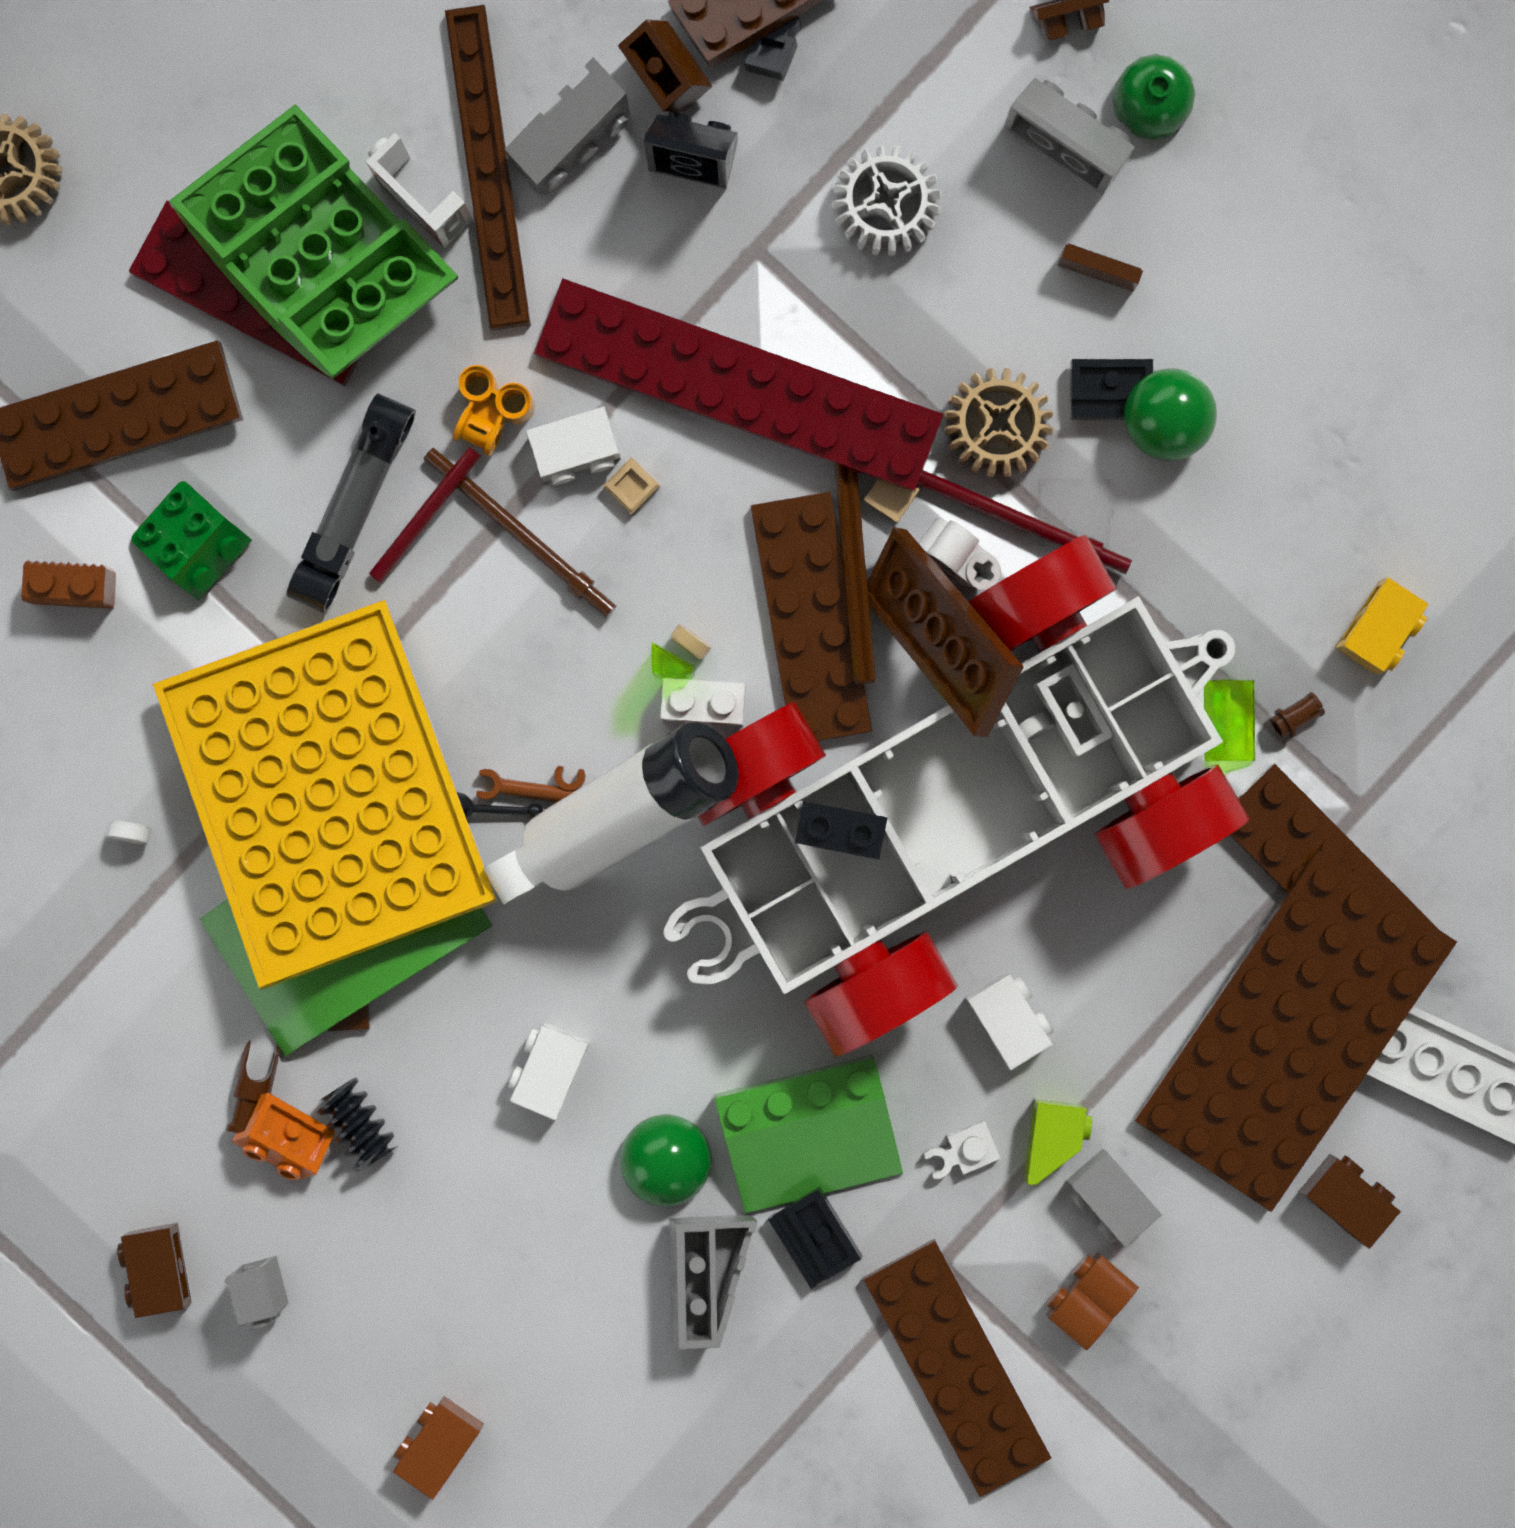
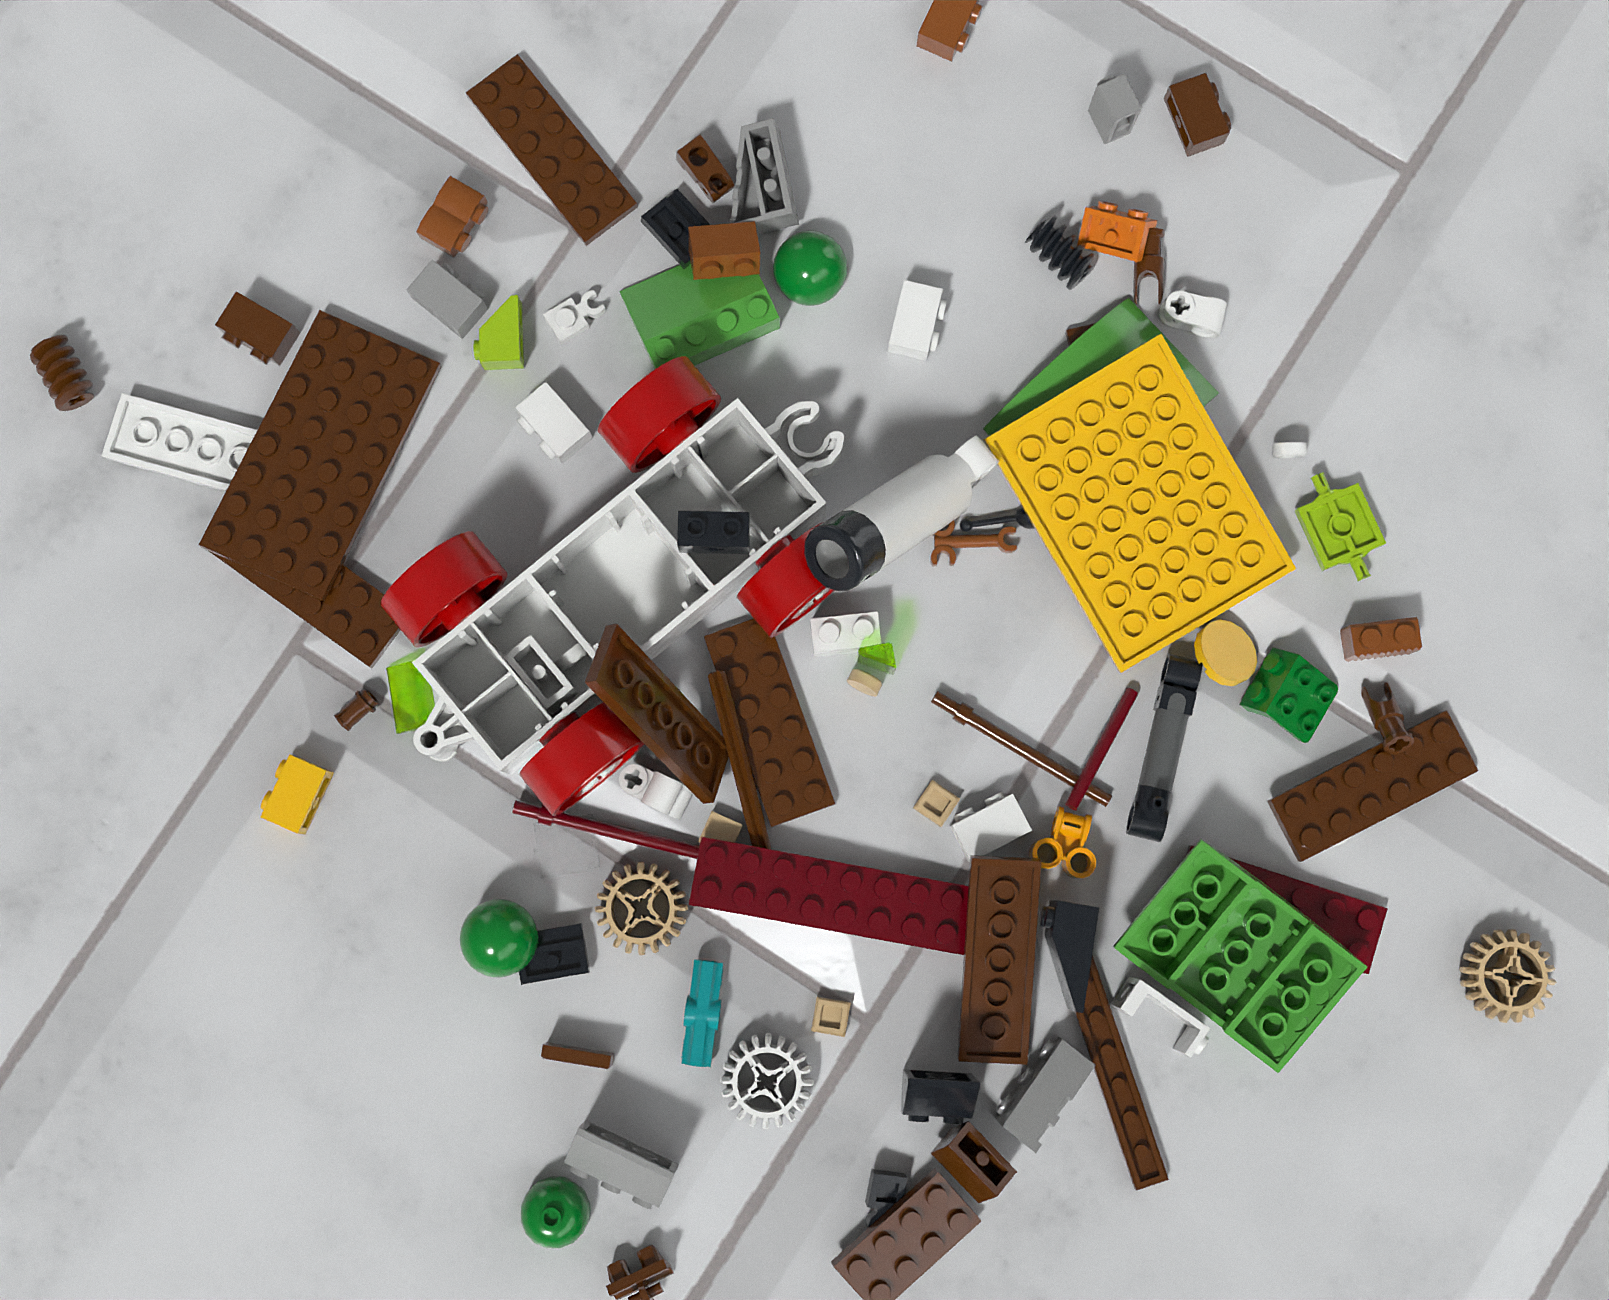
camera: 170 degrees right, 5 degrees down
(81, 487) = (1389, 721): none -> reddish brown piece
(88, 728) = (1340, 526): none -> lime plate
(204, 1018) = (1198, 313): none -> white piece
(256, 600) = (1225, 652): none -> yellow tile
(504, 297) = (1070, 939): none -> black slope
(593, 288) = (999, 959): none -> reddish brown plate
(767, 1193) = (724, 250): none -> dark orange brick
(772, 1306) = (705, 168): none -> reddish brown leg
(799, 262) = (830, 1016): none -> tan tile
(947, 290) = (702, 1013): none -> teal piece

